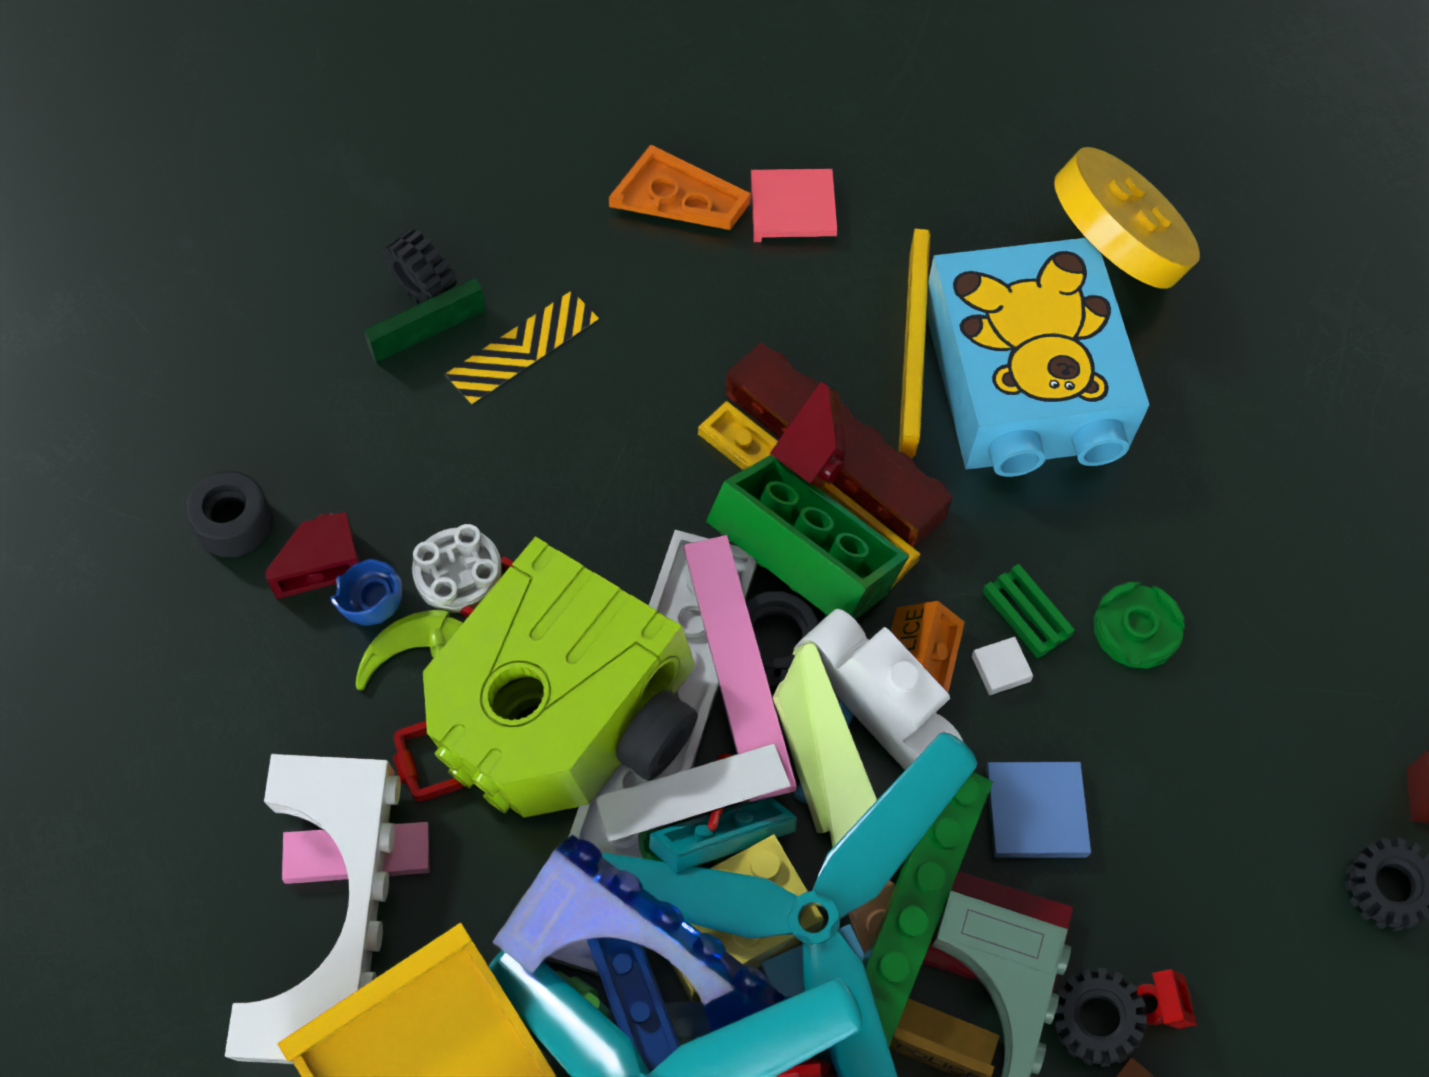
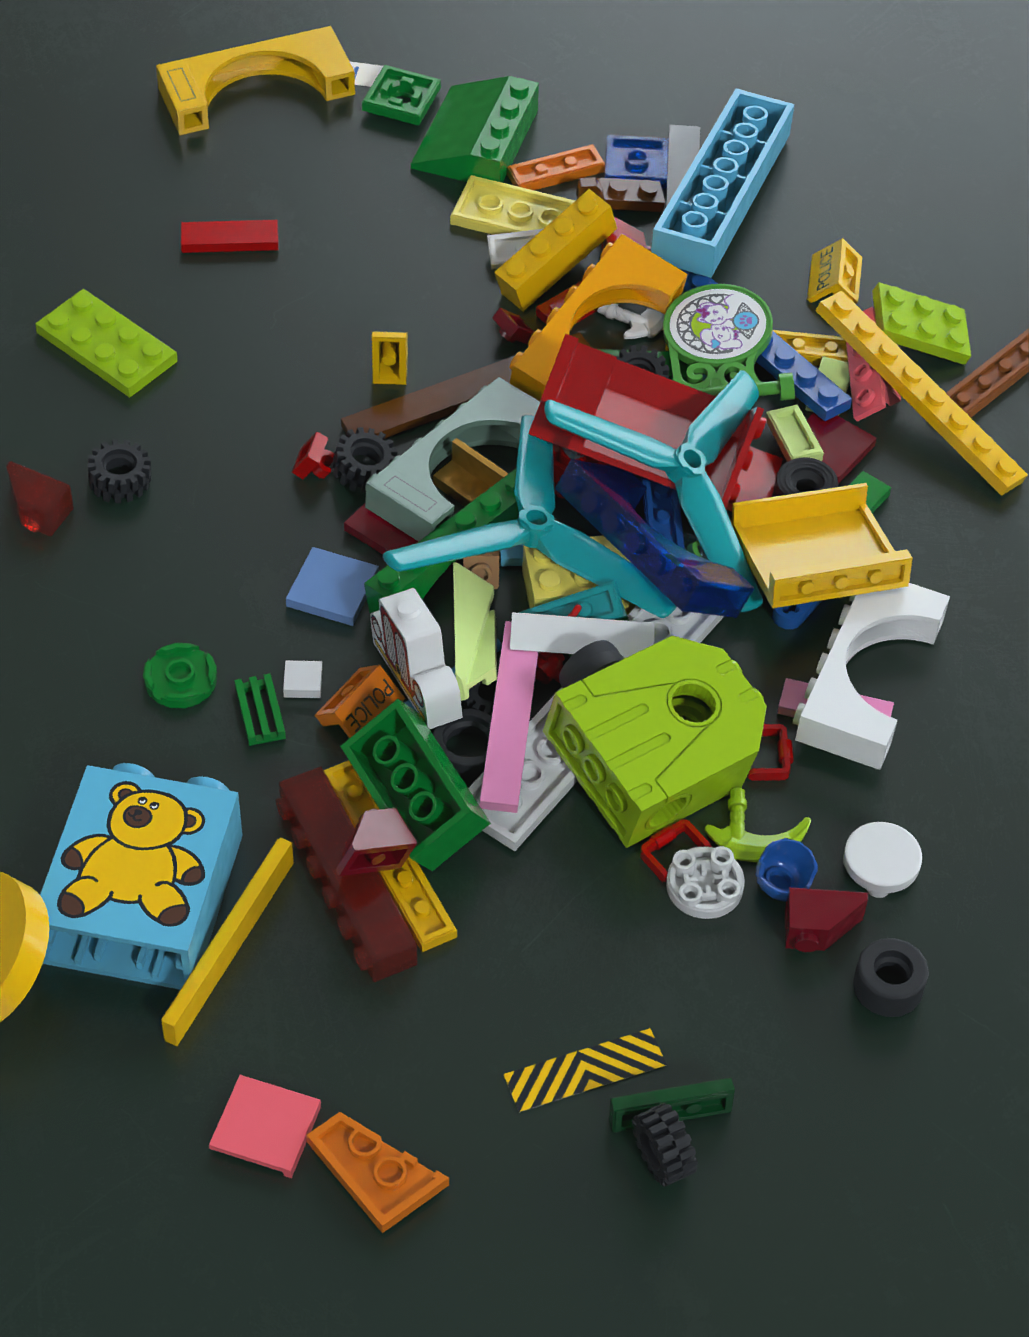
camera: 160 degrees left, 10 degrees down
(261, 657) = (882, 858): none -> white tile

